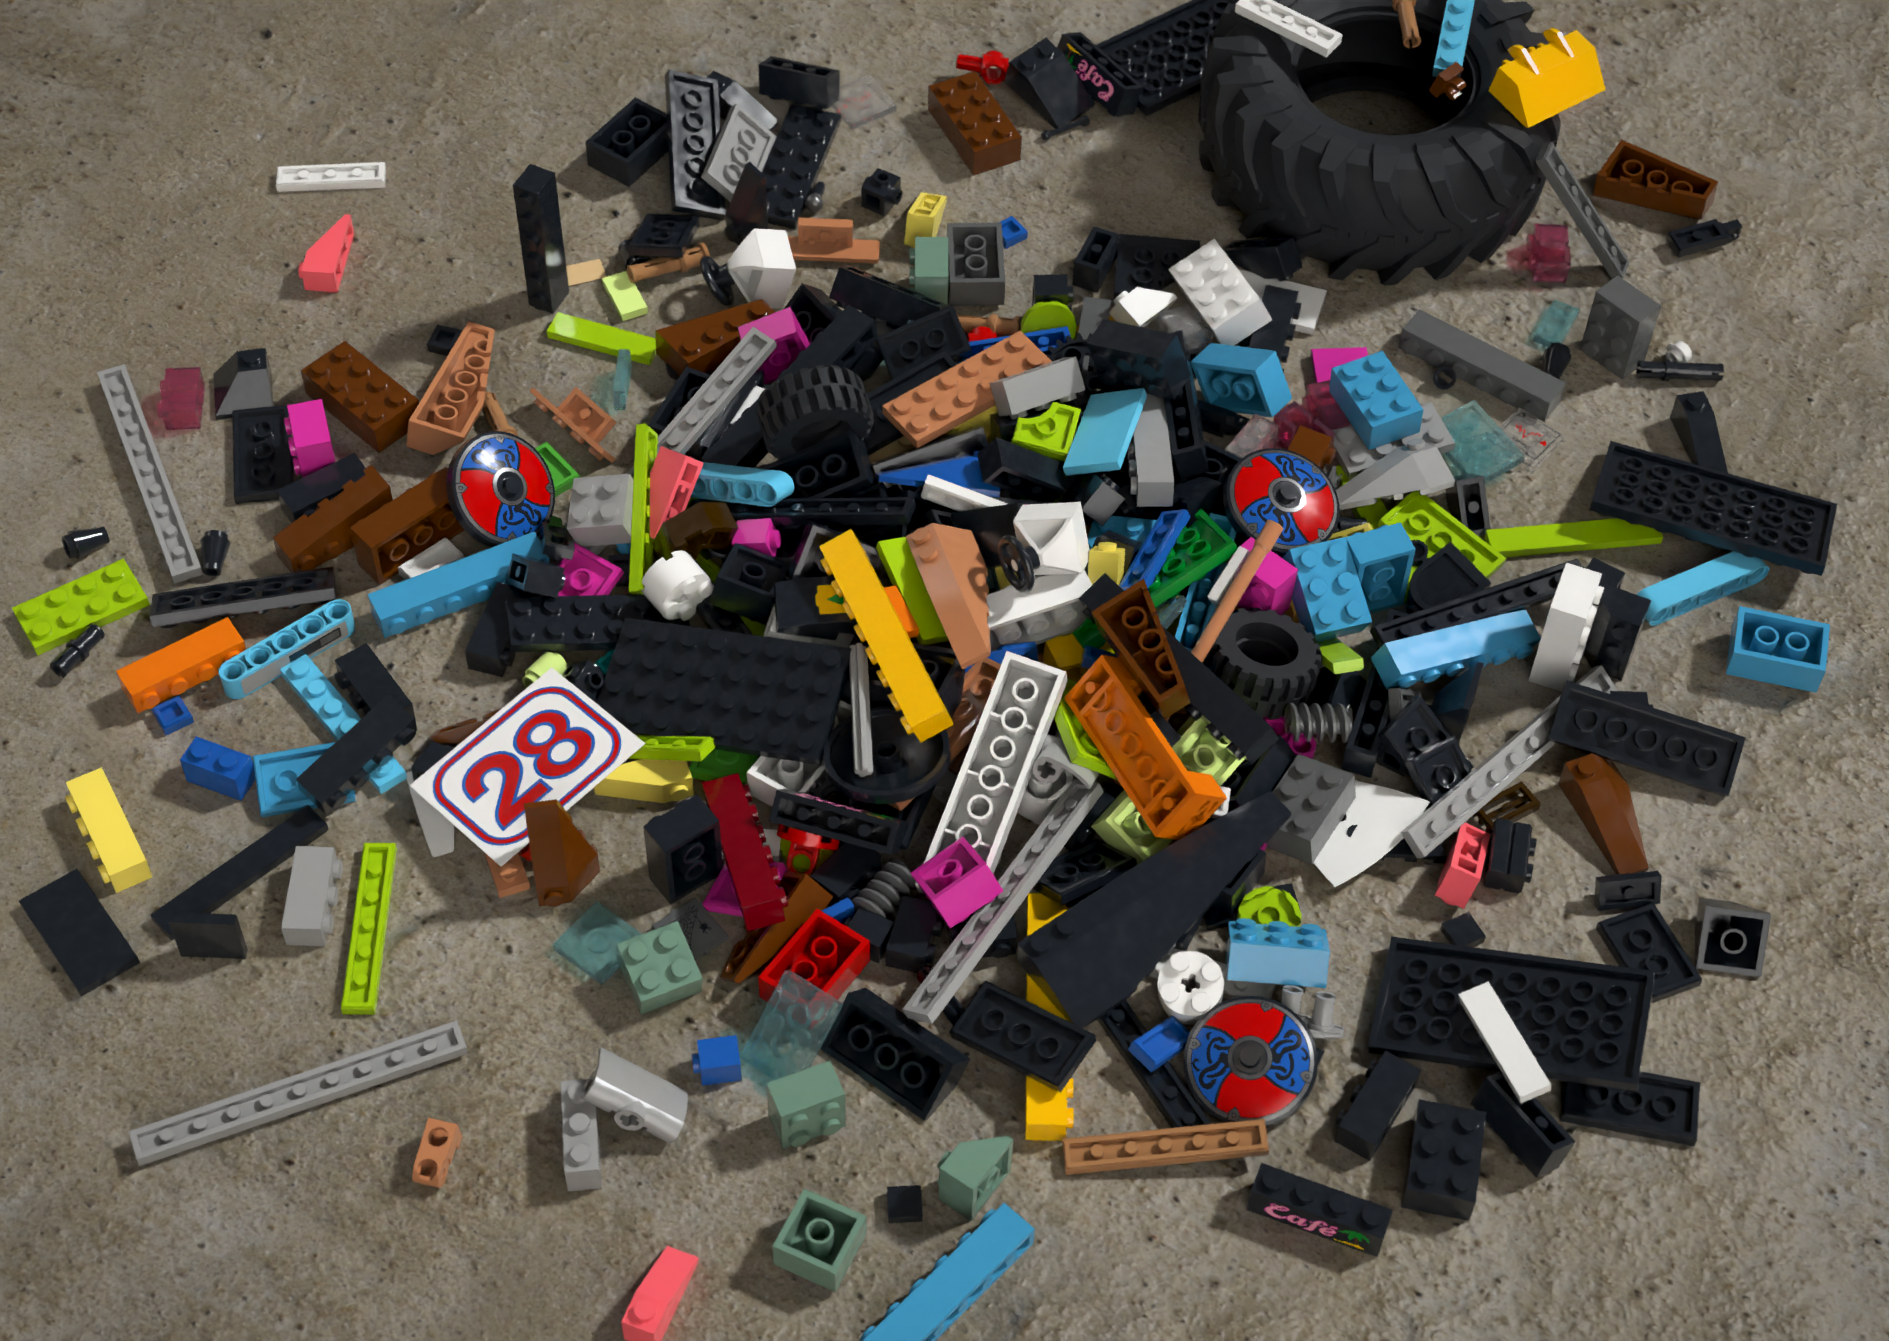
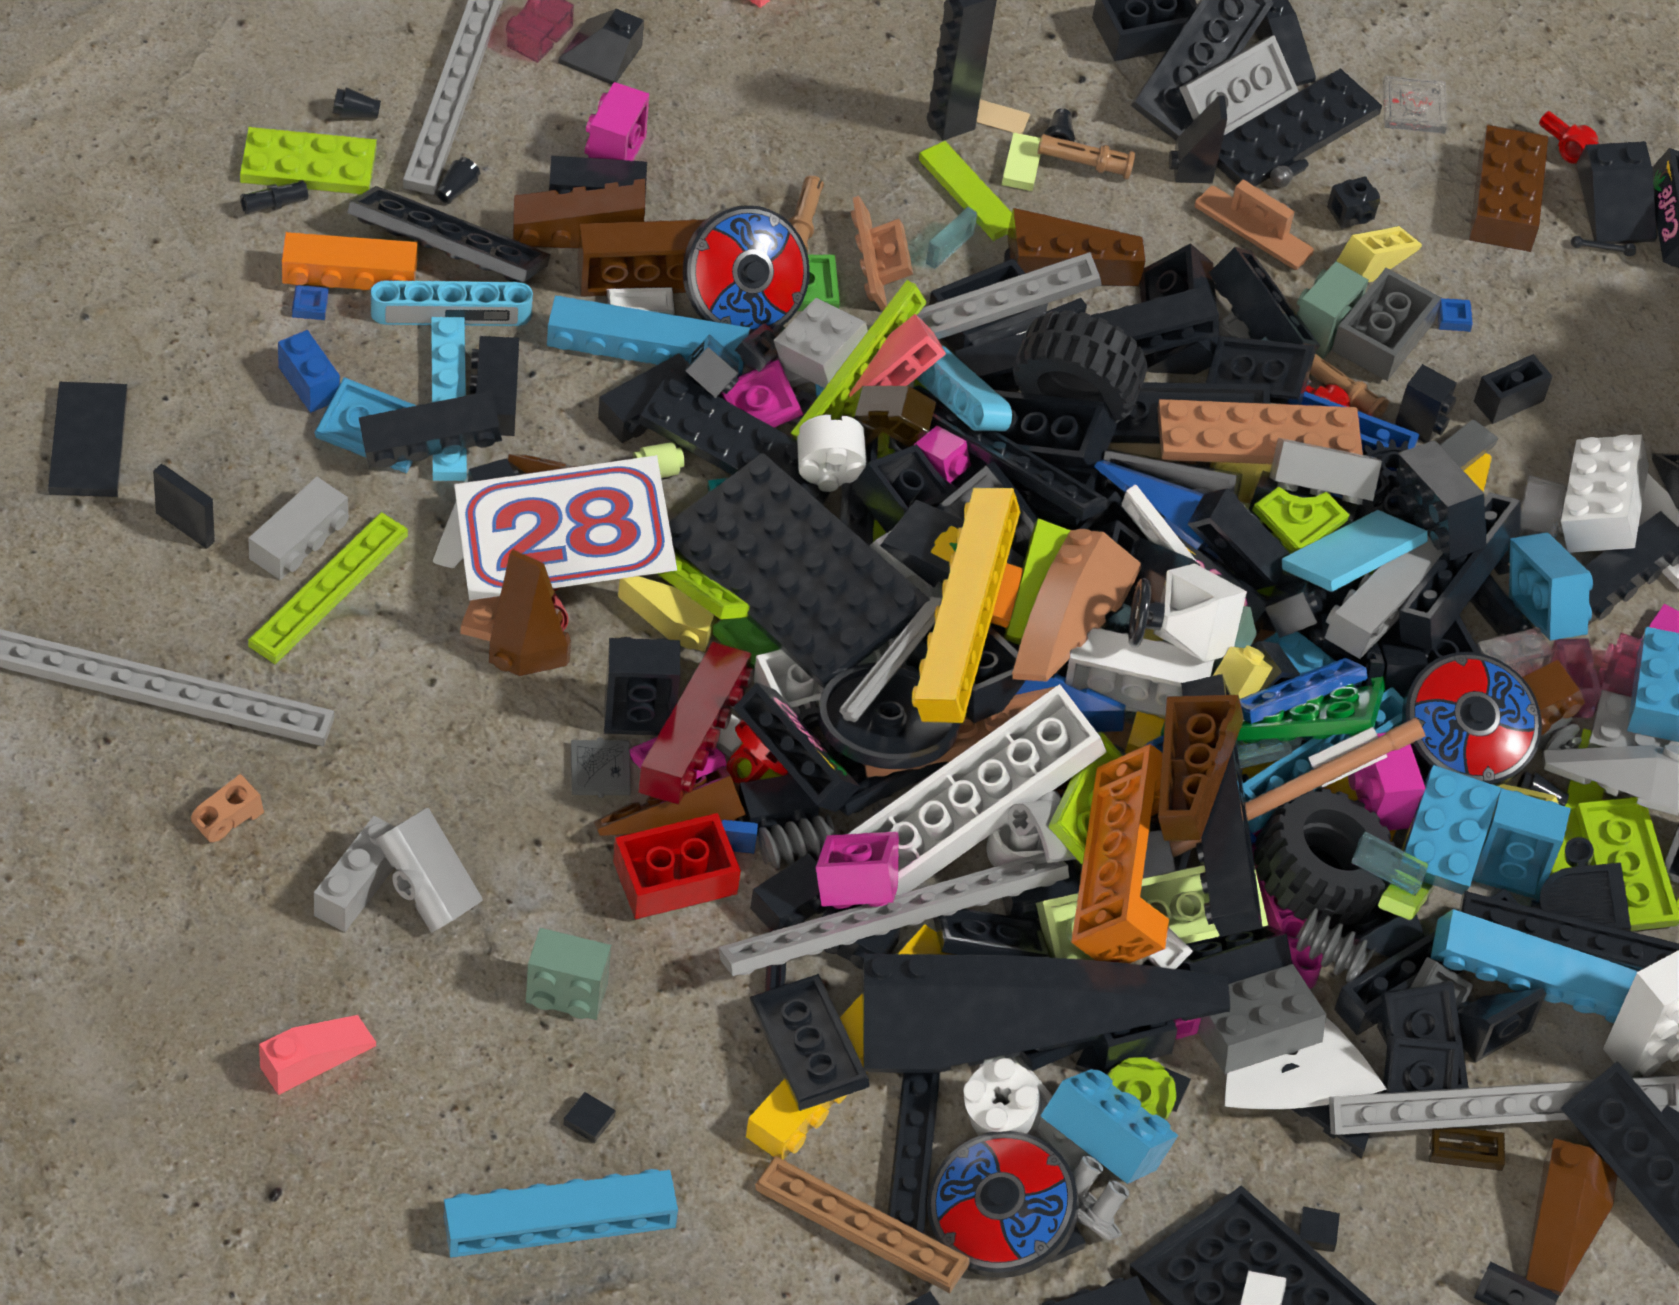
camera: 30 degrees right, 0 degrees up
(108, 829) = (176, 367): light yellow brick -> none
(244, 868) = (269, 470): black tile -> none
(260, 454) = (563, 118): black tile -> none
(360, 395) = (699, 115): reddish brown brick -> none
(443, 339) = (818, 108): black plate -> none
(454, 395) = (783, 159): nougat wedge -> none
(586, 678) = (682, 489): black brick -> none
(593, 942) = (513, 725): clear light blue tile -> none
(659, 967) = (541, 777): sand green brick -> none
(664, 235) = (1103, 125): black tile -> none
(717, 1060) = (528, 889): blue brick -> none
(759, 267) = (1160, 204): white piece -> none
(789, 338) = (1124, 281): dark pink brick -> none
(791, 1027) = (610, 898): clear light blue plate -> none
(799, 82) = (1361, 50): black brick -> none
(819, 1240) = (485, 1094): sand green brick -> none
(872, 928) = (755, 866): black brick -> none
(894, 1053) = (688, 984): black slope -> none
(973, 1173) = (666, 1128): sand green slope -> none
(1048, 316) = (1409, 414): lime tile -> none
(1140, 306) = (1514, 459): white slope -> none
(1146, 261) = (1560, 420): black plate -> none
(1160, 1043) = (934, 1133): blue tile -> none
(1313, 638) = (1390, 863): none -> clear light blue tile
(1463, 866) = (1371, 1167): coral slope -> none
(1508, 856) = (1425, 1190): black brick -> none

